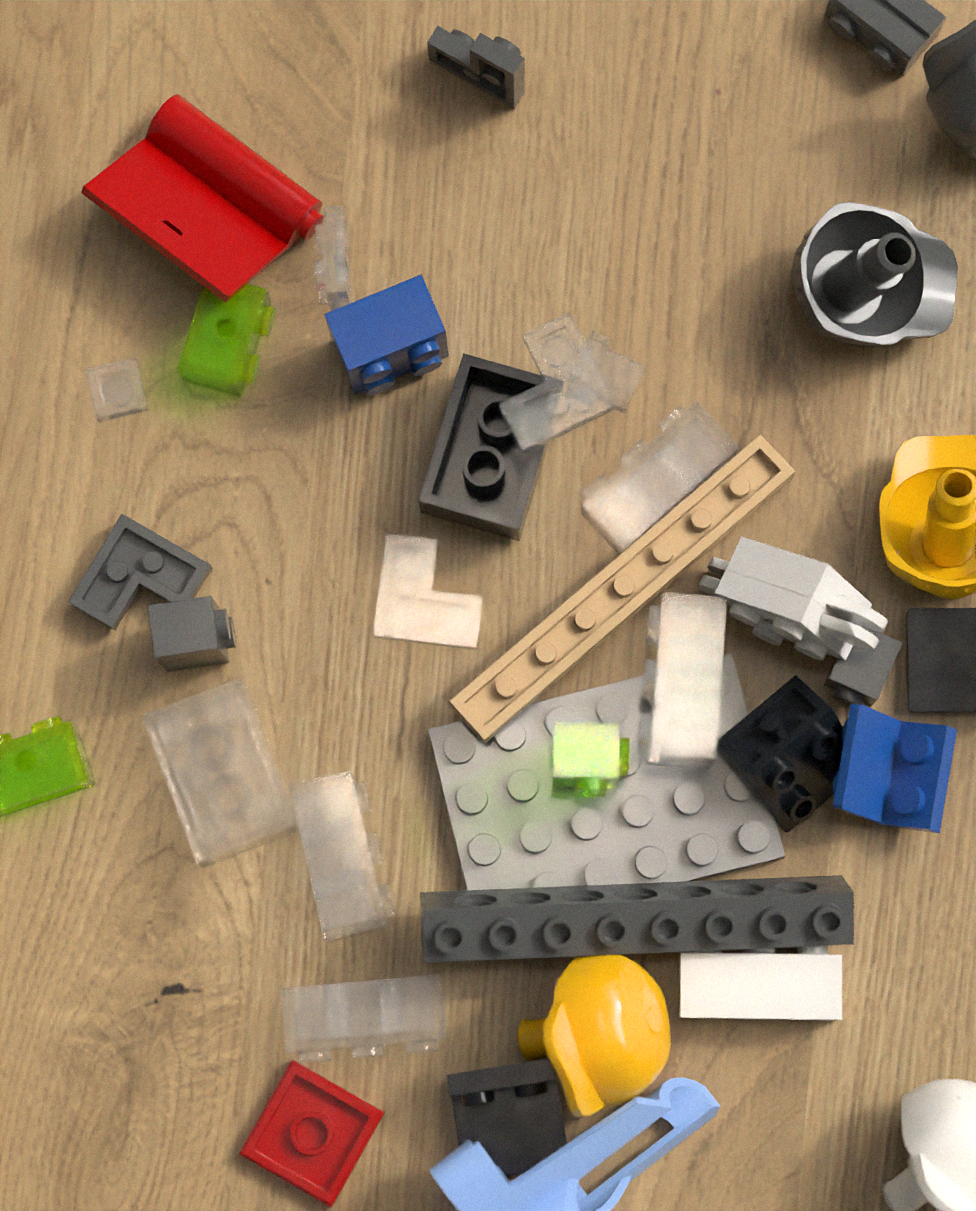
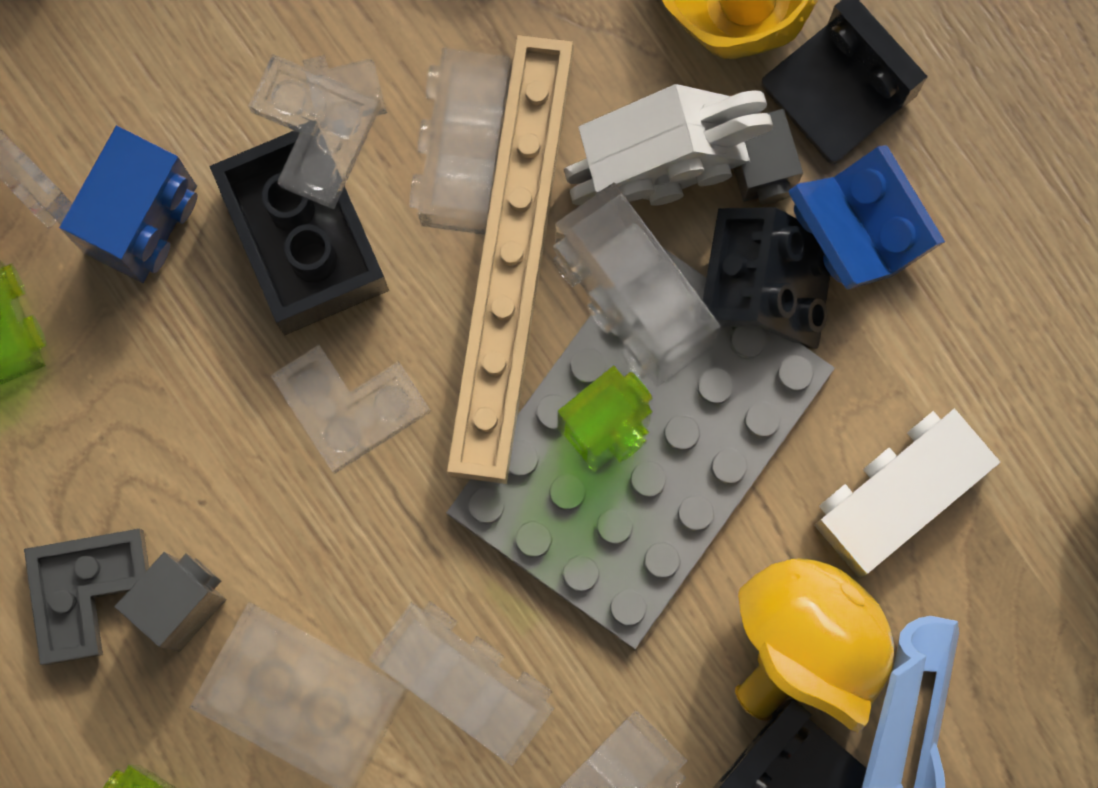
camera: 45 degrees left, 0 degrees up
(636, 918) = (757, 524): dark grey brick -> none

